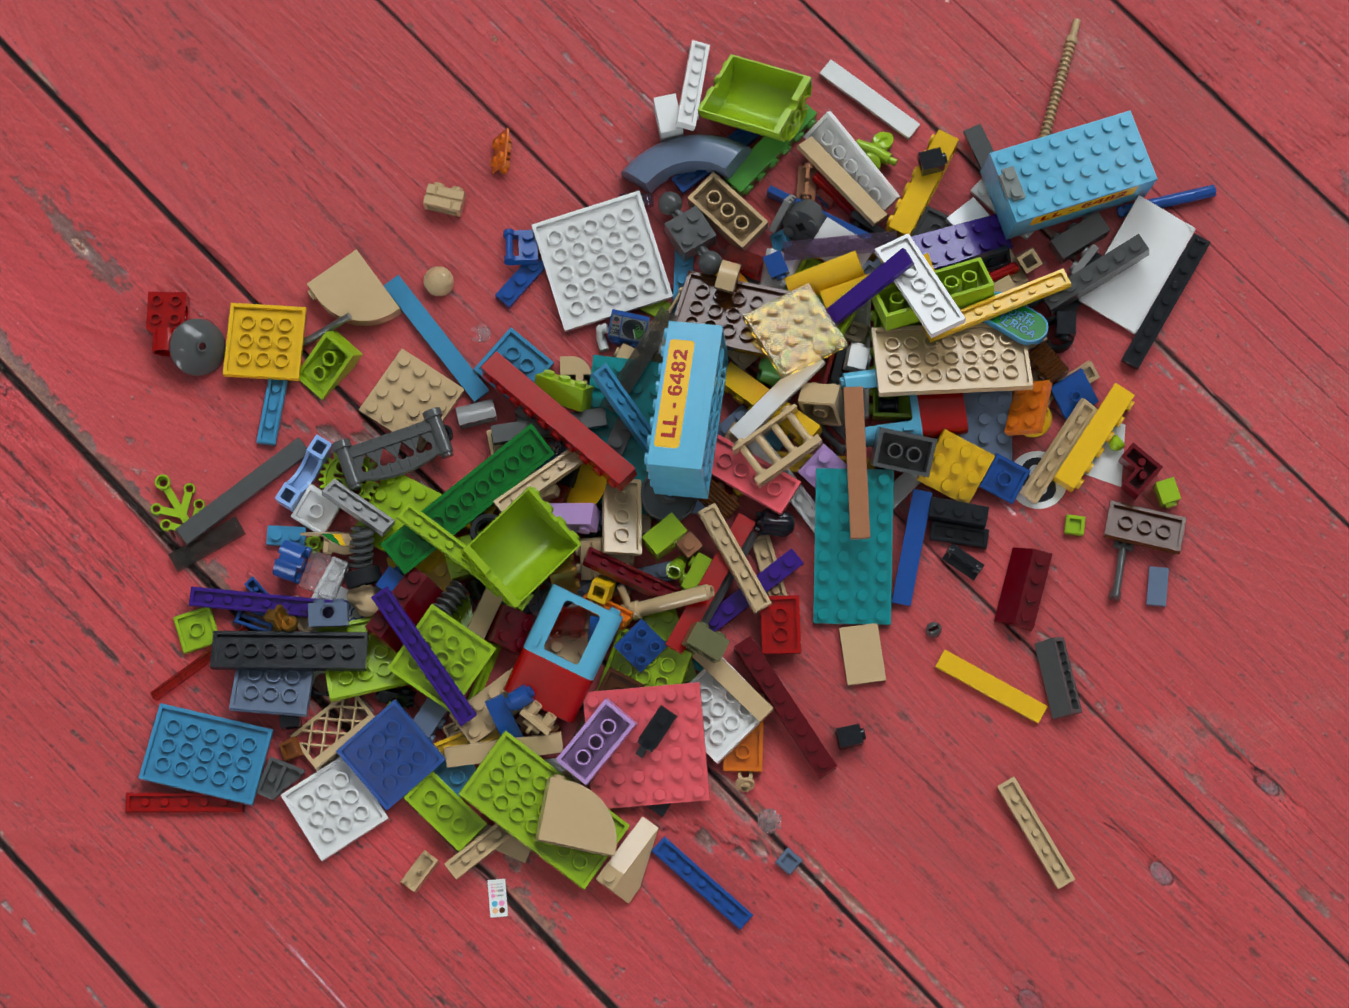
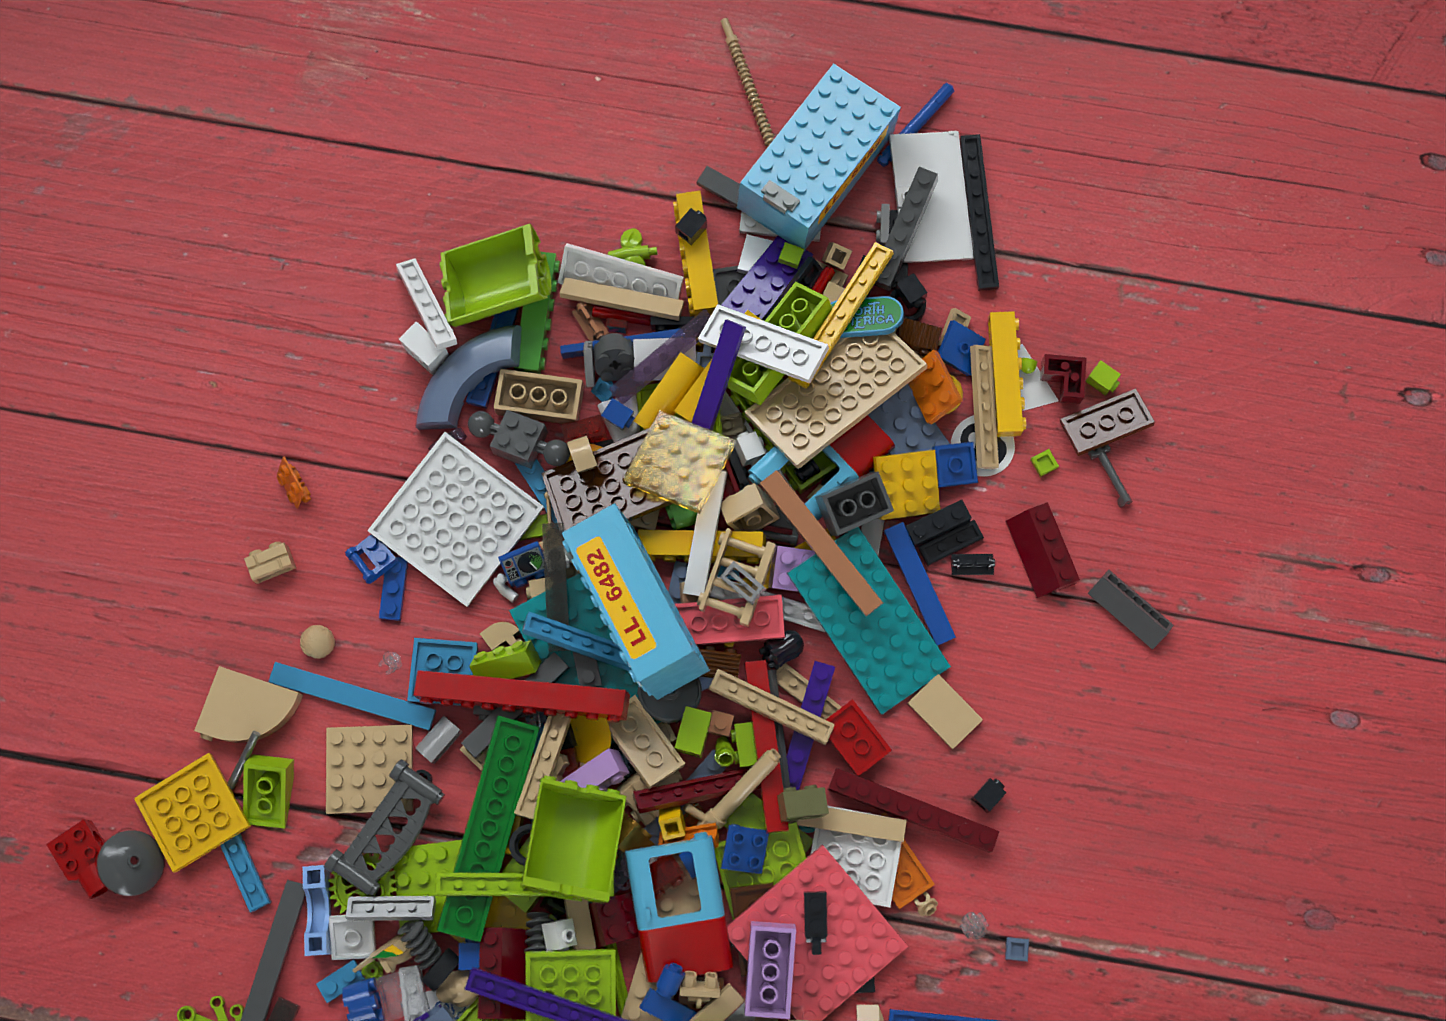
camera: 35 degrees left, 0 degrees up
(464, 610) = (559, 934): none -> white brick
(780, 465) = (756, 594): none -> light grey tile
(869, 99) = (592, 210): white tile -> none
(935, 633) = (986, 641): dark grey hinge -> none
(991, 686) = (1078, 658): yellow tile -> none
(994, 235) = (791, 255): none -> lime tile
(1035, 833) = (1213, 763): tan plate -> none
(1078, 237) = (863, 206): dark grey brick -> none
(1157, 586) = (1154, 466): sand blue tile -> none

